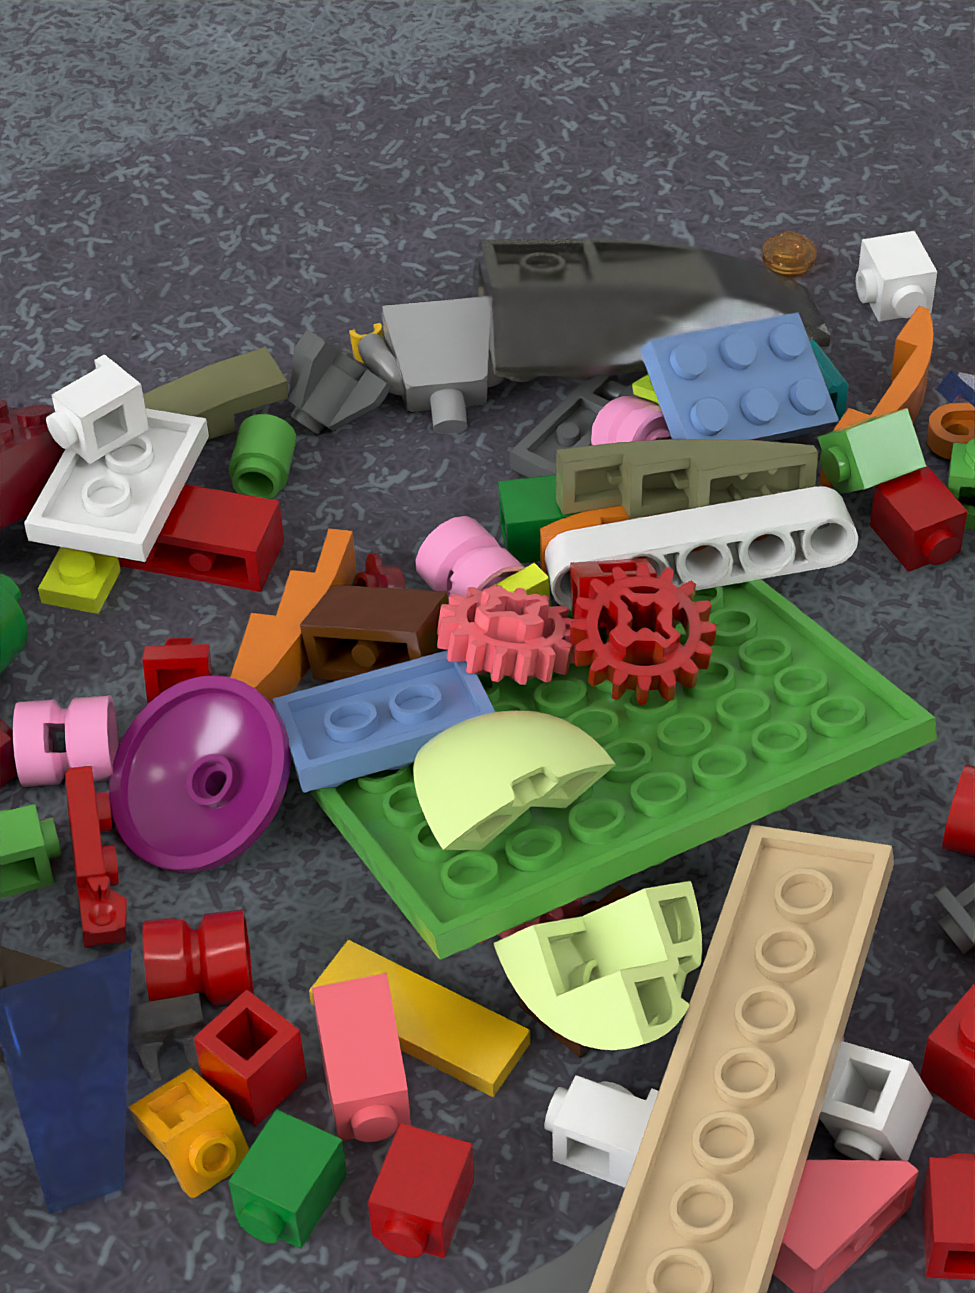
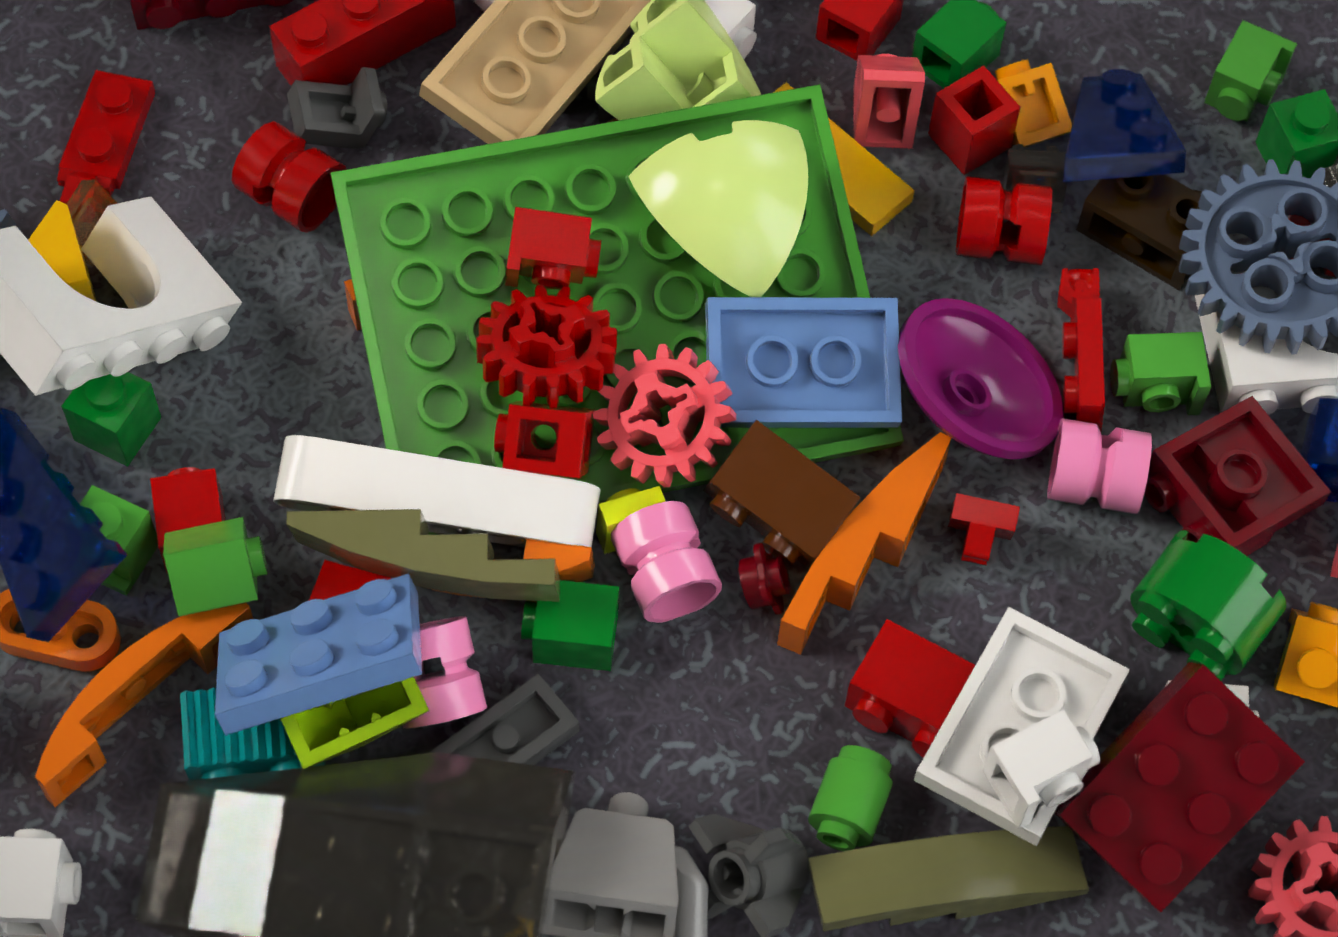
camera: 170 degrees left, 15 degrees up
(673, 704) = (551, 249): none -> red brick

